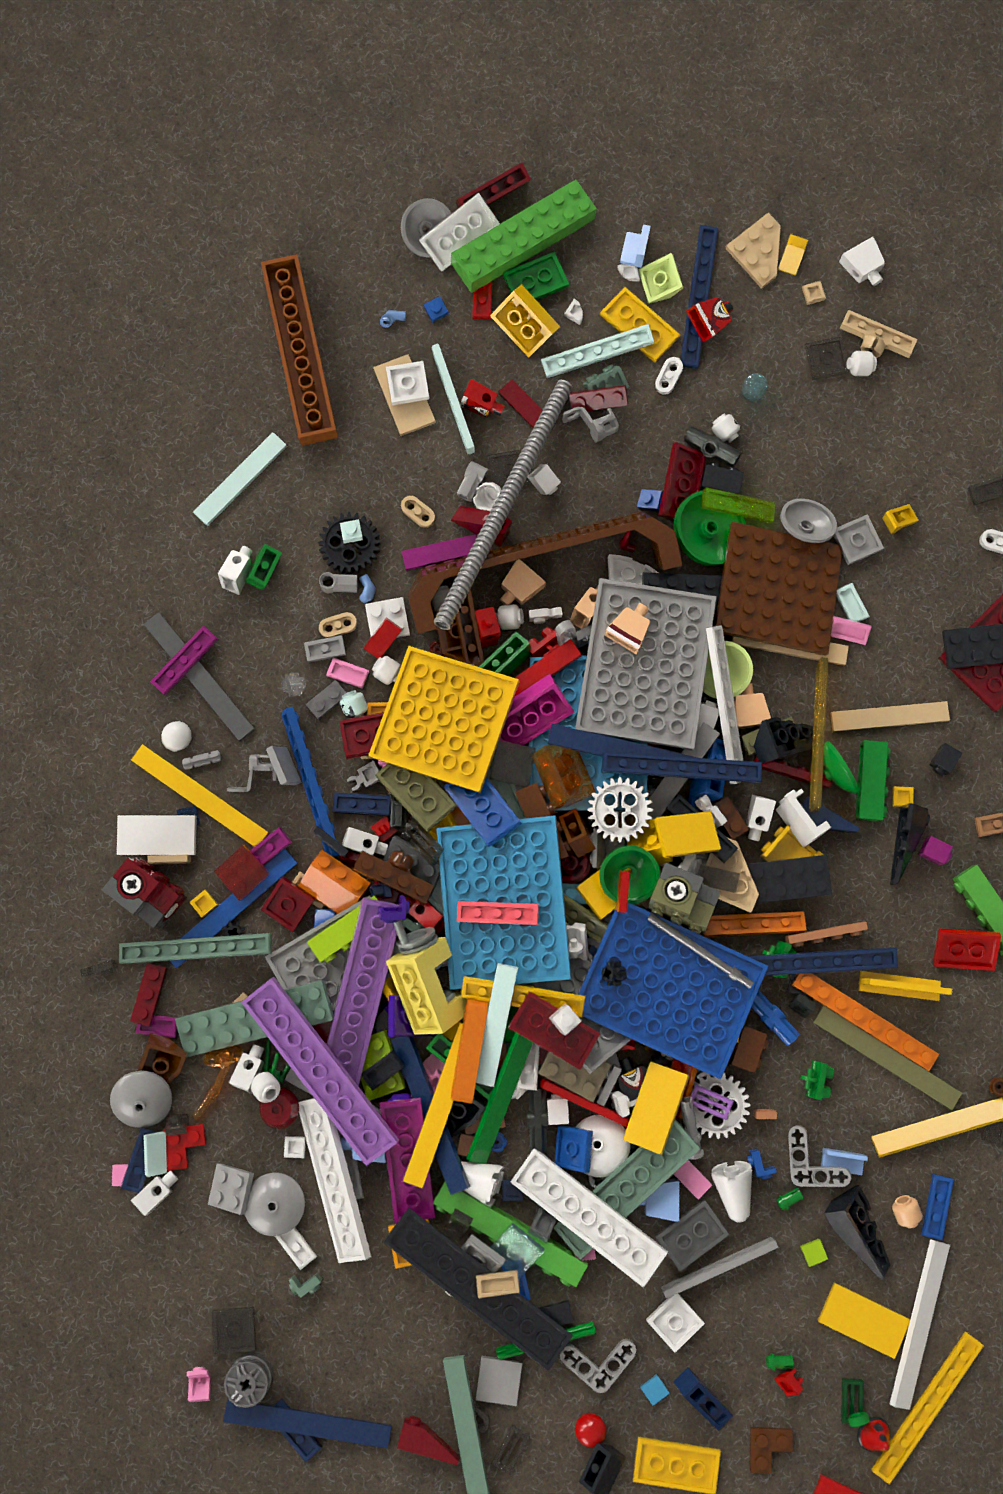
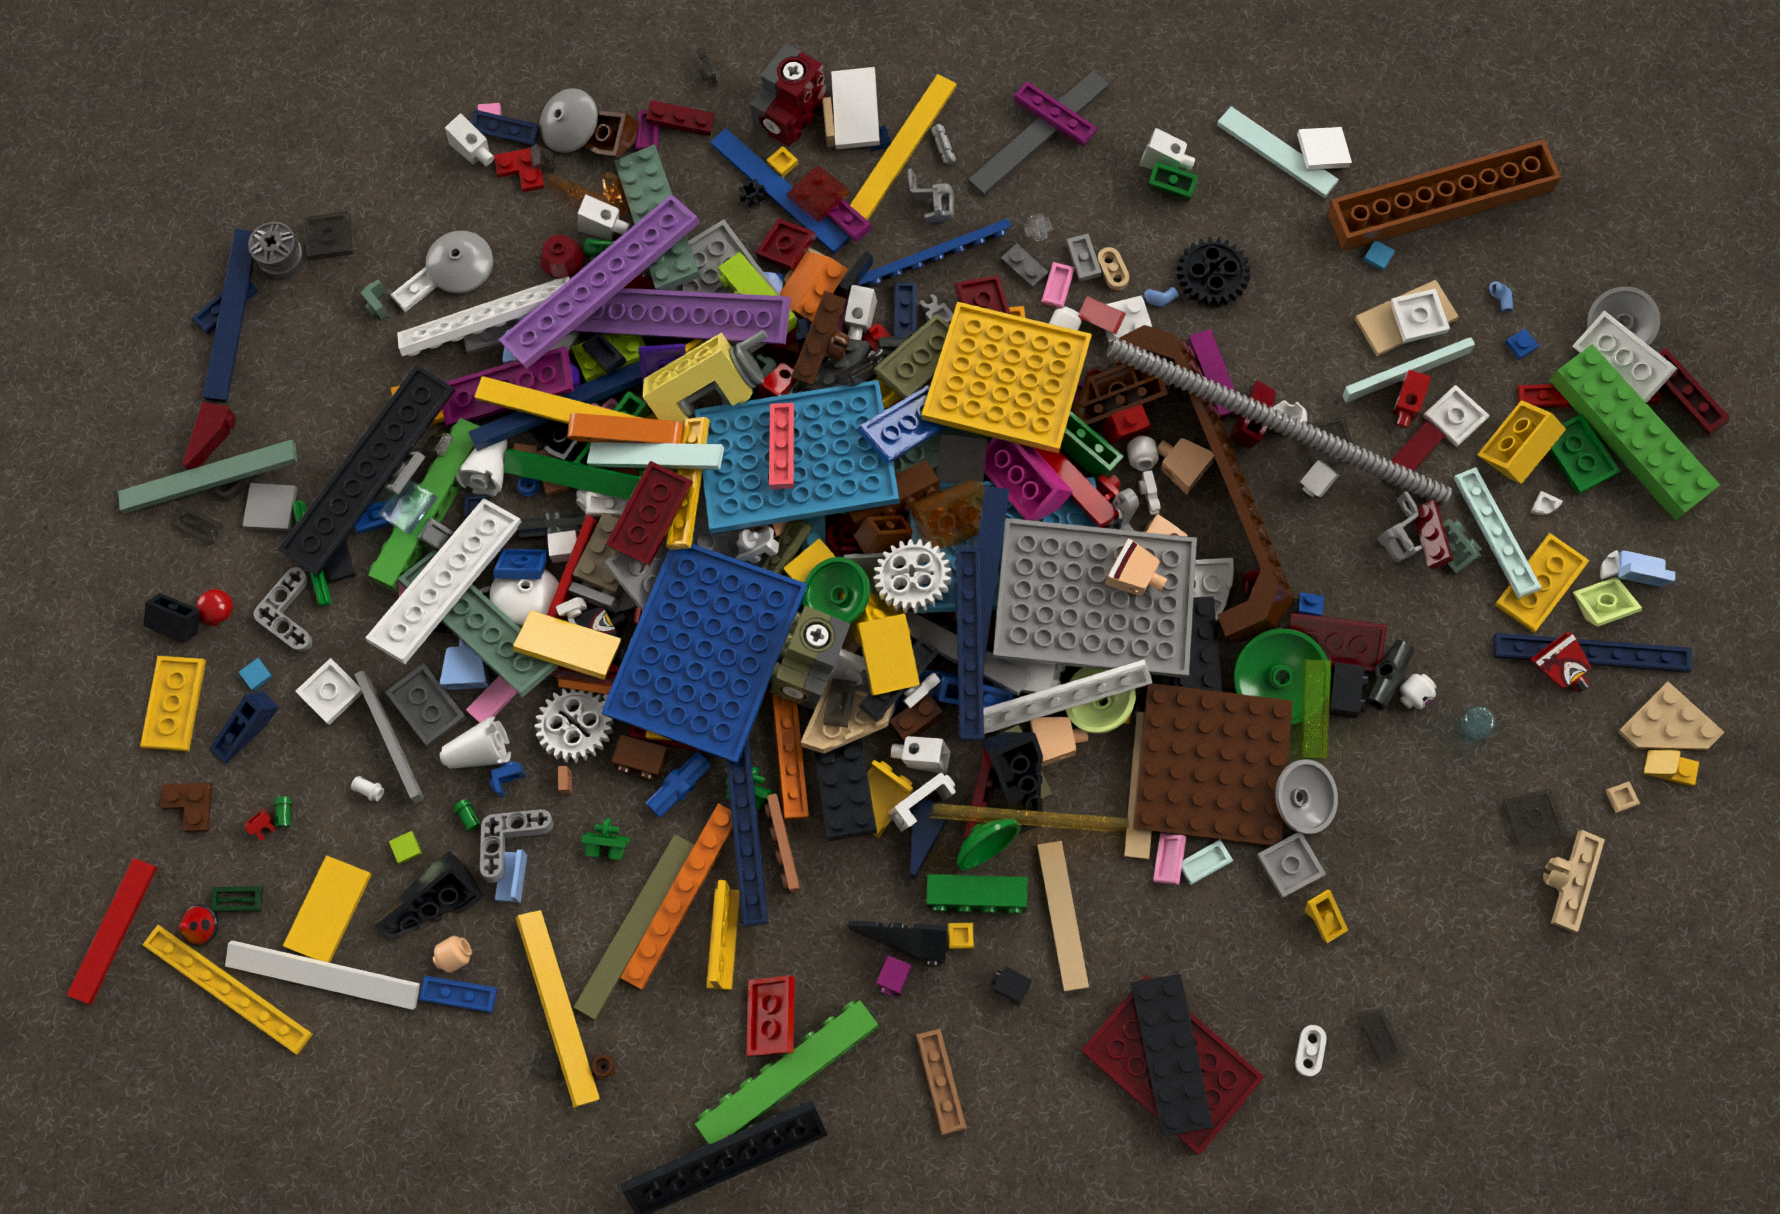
camera: 90 degrees right, 10 degrees down
(155, 1154) = (510, 140): light aqua tile -> none
(176, 736) = (968, 116): white hair -> none
(195, 948) = (731, 155): sand green tile -> none
(199, 1384) = (273, 207): bright pink bracket -> none
(230, 1189) = (475, 216): light grey plate -> none
(242, 439) = (1324, 148): none -> white tile
(265, 1087) = (581, 233): white head -> none
(283, 765) = (941, 222): light grey tile -> none
(294, 1147) = (520, 278): white tile -> none
(341, 583) = (1163, 265): light grey piece -> none
(345, 409) = (1379, 255): none -> dark azure tile
(351, 531) = (1225, 267): light aqua plate -> none
(353, 704) = (1019, 291): light aqua head -> none
(391, 914) = (772, 327): dark purple bracket -> none
(419, 511) = (1261, 344): tan plate -> none
(473, 478) = (1314, 401): light grey piece -> none
(494, 368) = (1456, 416): none -> white tile
(497, 1284) = (371, 487): tan tile -> none
(565, 1019) = (660, 517): white brick -> none
(614, 973) = (717, 576): black gear -> none
(623, 890) = (813, 580): red tile -> none
(668, 376) = (1477, 618): white plate -> none
(690, 1124) = (539, 694): light grey pin -> none
(727, 1108) = (569, 727): medium lavender tile -> none
(733, 973) = (725, 717): flat silver bar -> none
(762, 1286) = (367, 788): none -> white pin
(802, 1005) = (695, 818): pearl dark grey plate -> none
(858, 1419) = (215, 900): green tile -> none
(862, 363) = (1531, 858): white head -> none
(864, 262) = (1676, 858): white torso -> none

